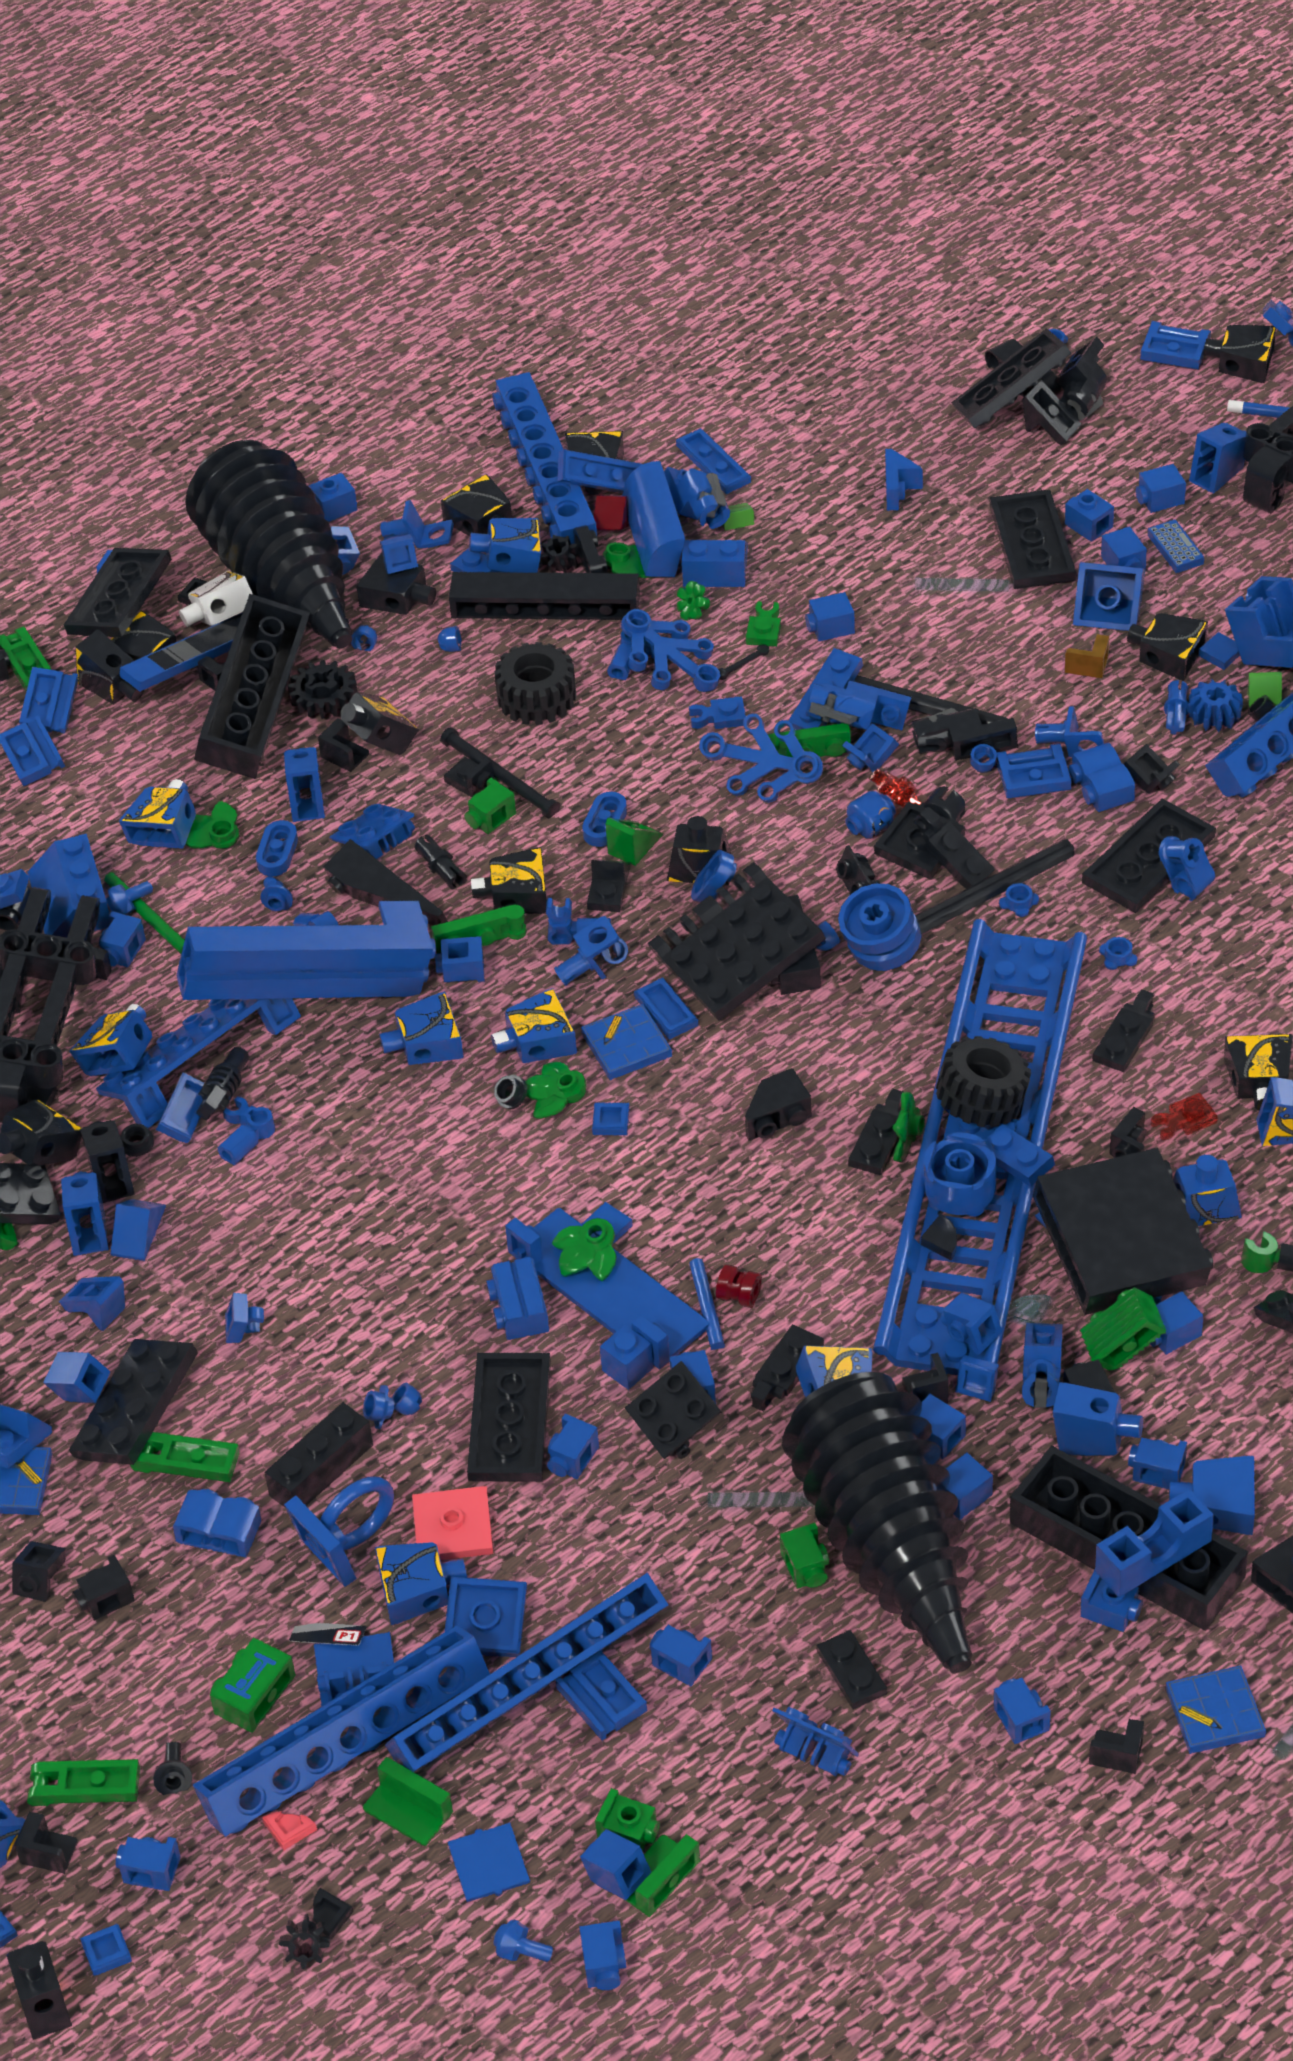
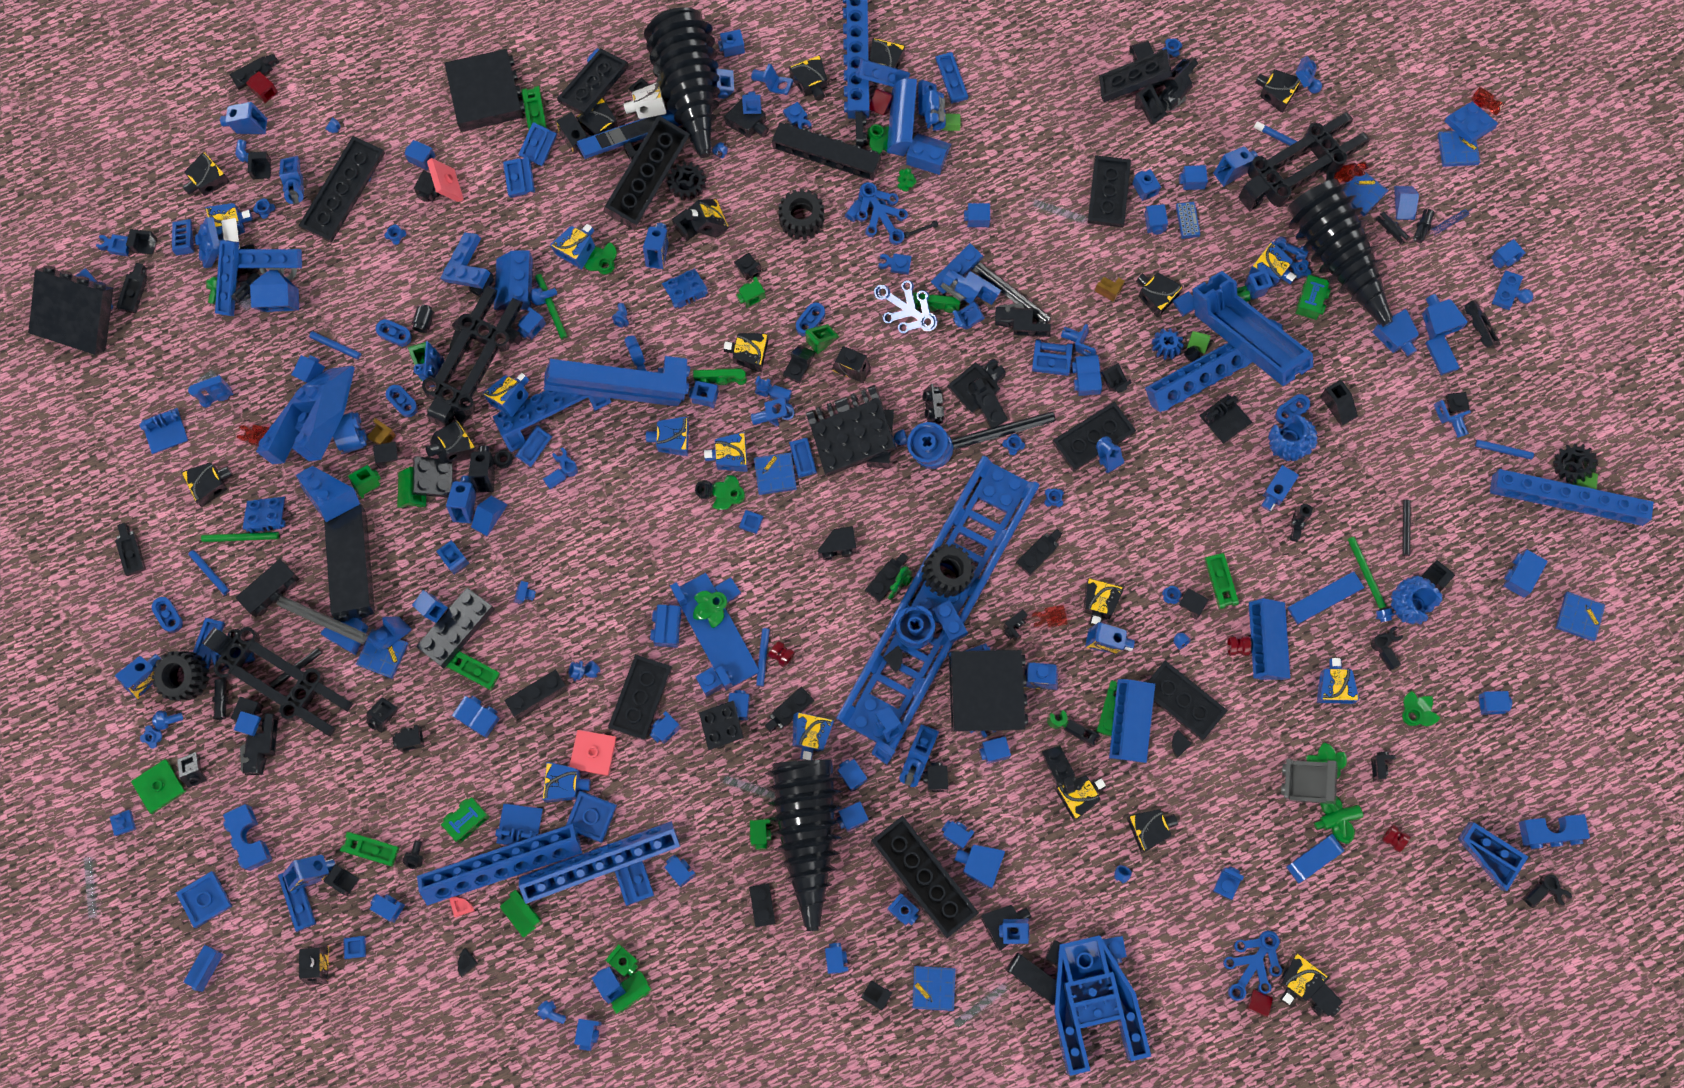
camera: 15 degrees right, 25 degrees up
(222, 1083) = (556, 438): black hinge -> none
(277, 851) = (629, 285): blue plate -> none
(305, 1952) = (447, 978): black gear -> none
(324, 1535) = (524, 748): blue tile -> none
(328, 1633) = (512, 799): sticker -> none
(368, 880) = (669, 322): black slope -> none
(440, 861) = (714, 321): black pin -> none
(449, 639) = (764, 165): blue hinge -> none
(488, 1862) = (551, 957): blue piece -> none
(510, 544) = (818, 110): blue torso -> none
(548, 807) = (746, 236): black bar -> none
(559, 554) = (840, 121): black gear -> none
(713, 876) = (853, 383): blue plate -> none
(764, 627) = (940, 209): green plate -> none
(802, 1737) = (724, 939): blue hinge -> none
(870, 814) = (953, 361): blue head -> none
(898, 789) = (973, 350): clear red plate -> none
(900, 476) = (1050, 122): blue slope -> none
(929, 1382) = (856, 748): black panel -> none
(979, 754) = (1026, 337): blue hinge -> none
(1029, 1309) = (926, 715): clear light blue tile -> none
(1091, 1421) = (923, 799): blue torso -> none
(1108, 596) = (1136, 247): blue slope -> none
(1123, 1329) = (966, 750): green brick -> none
(1174, 345) = (1238, 73): blue plate -> none
(1176, 707) = (1146, 338): blue axle -> none
(1179, 1530) = (930, 901): blue arch -> none

